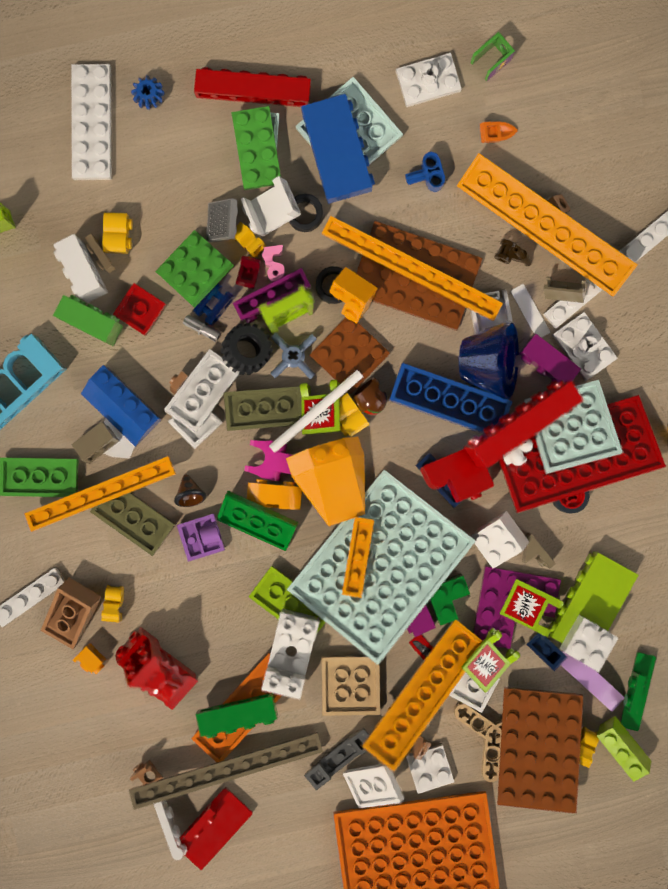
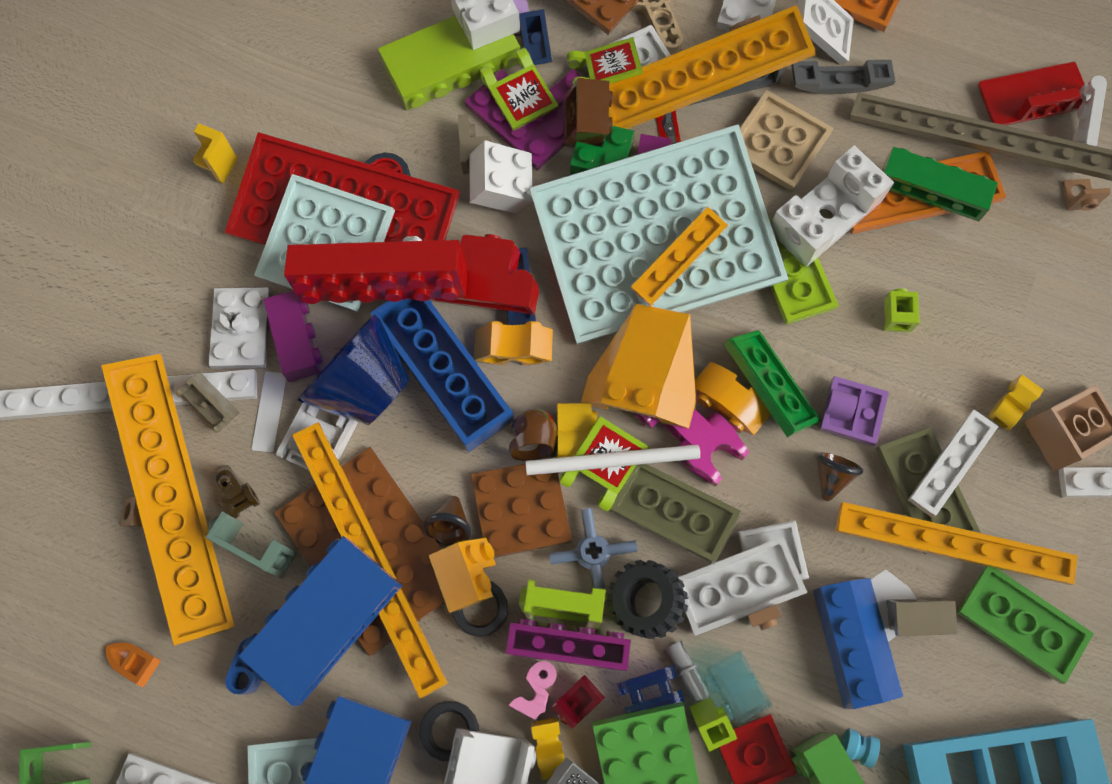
camera: 145 degrees left, 15 degrees down
(88, 349) = (861, 748): none -> medium azure wheel
(90, 659) = (1080, 358): light orange brick -> none
(127, 540) = (952, 463): none -> white plate
(154, 669) = (1011, 294): red brick -> none
(169, 337) = (737, 687): none -> clear light blue brick
(171, 308) = (712, 724): none -> lime brick
(203, 618) = (908, 304): none -> lime brick
(382, 318) = (448, 523): none -> reddish brown hat
(410, 217) = (319, 621): none -> blue brick
(419, 443) = (522, 343): none -> light orange brick
(463, 225) = (276, 558): none -> sand green panel
(475, 615) = (587, 112): none -> reddish brown brick

